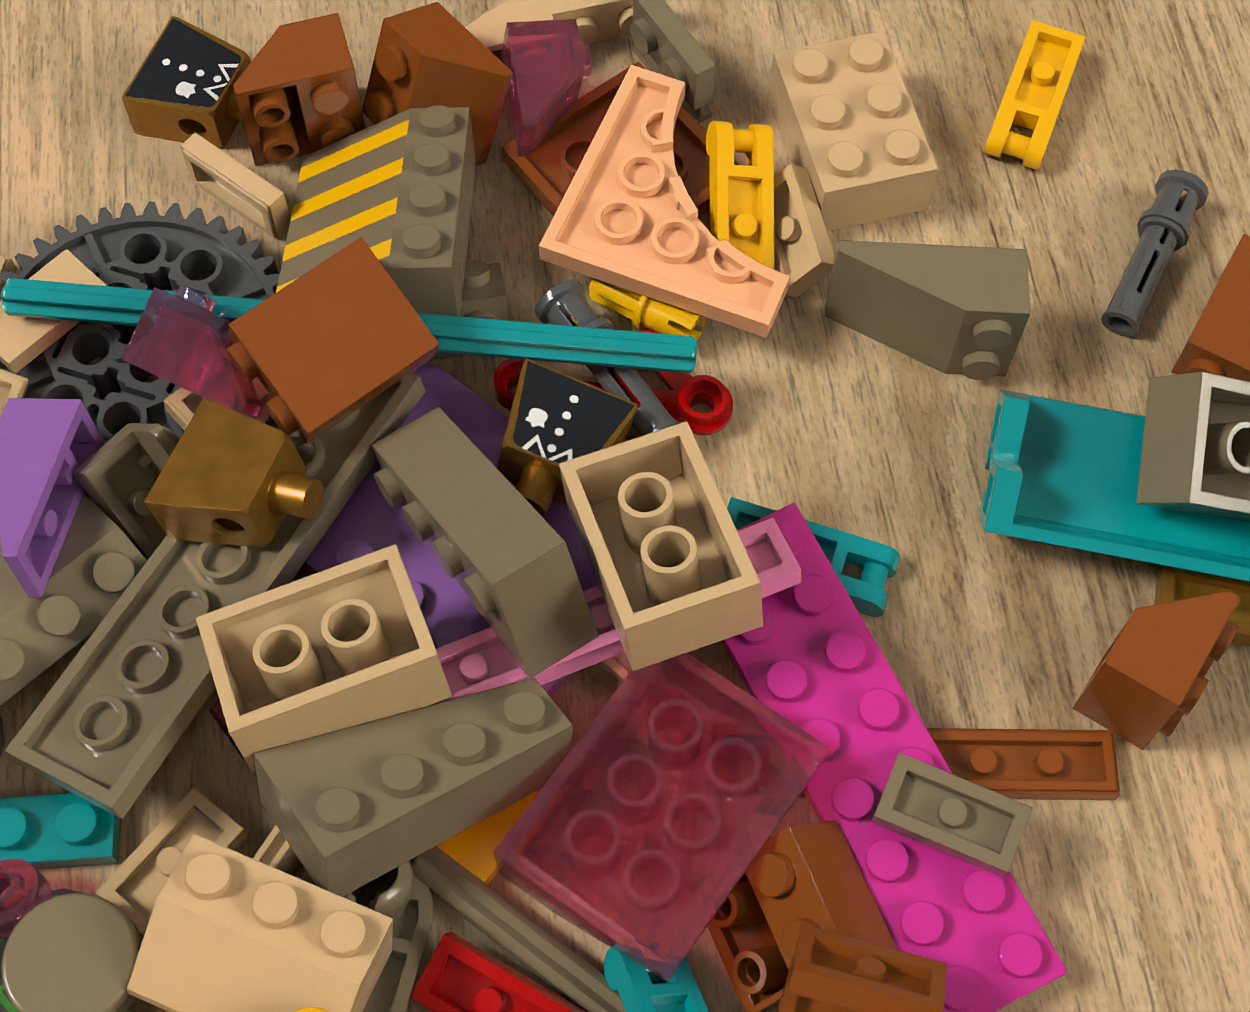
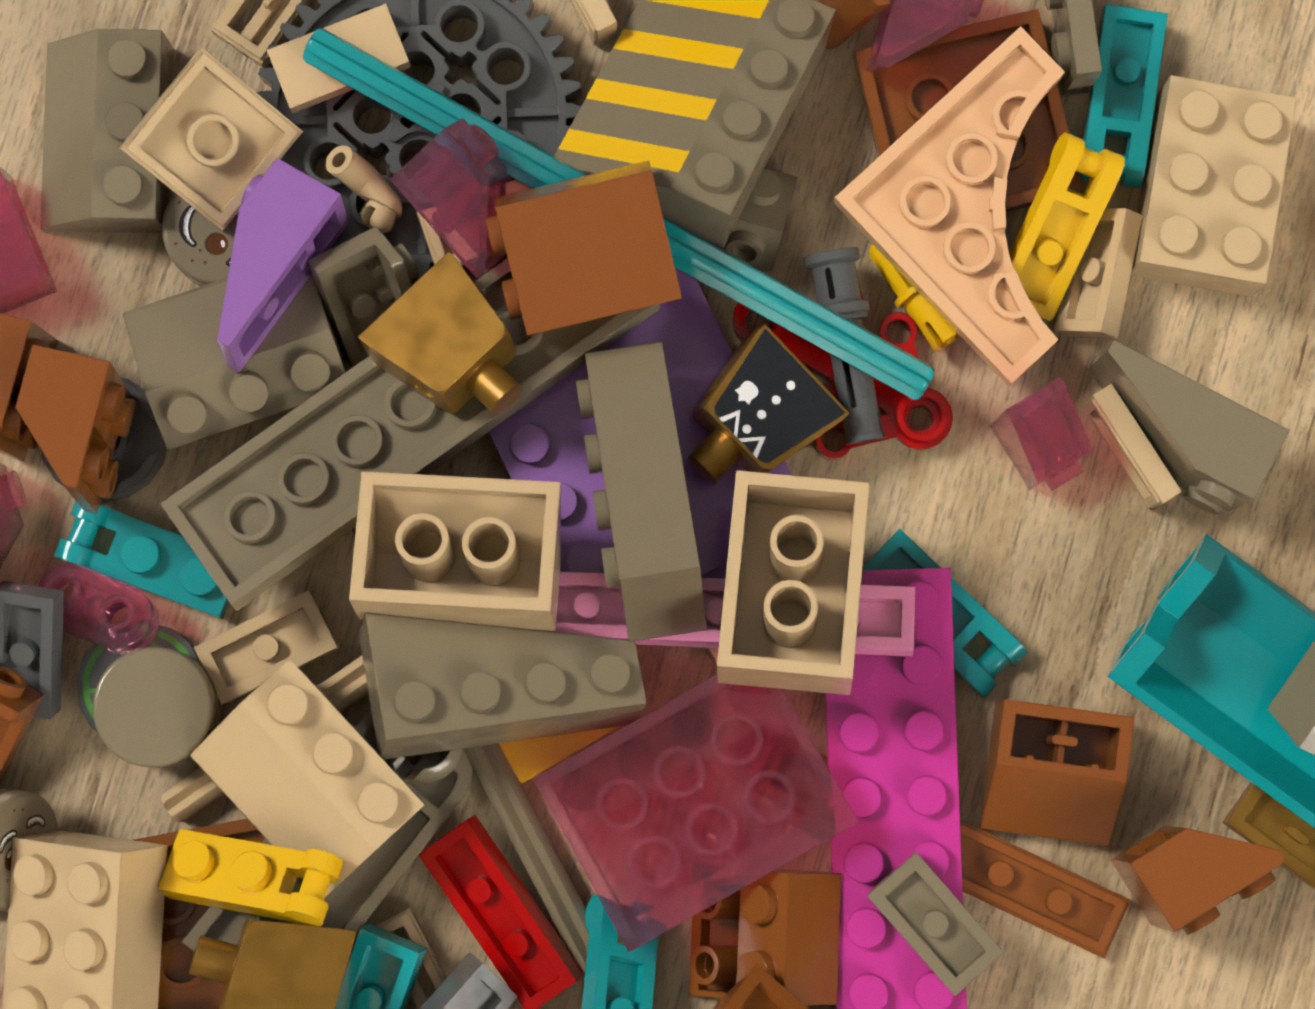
camera: 25 degrees right, 20 degrees up
(104, 395) = (364, 180): none -> tan arm
(742, 90) = (1126, 89): none -> teal plate
(816, 362) = (1044, 436): none -> clear pink slope
(897, 350) = (1131, 447): none -> tan tile
(982, 637) = (1055, 771): none -> dark orange slope

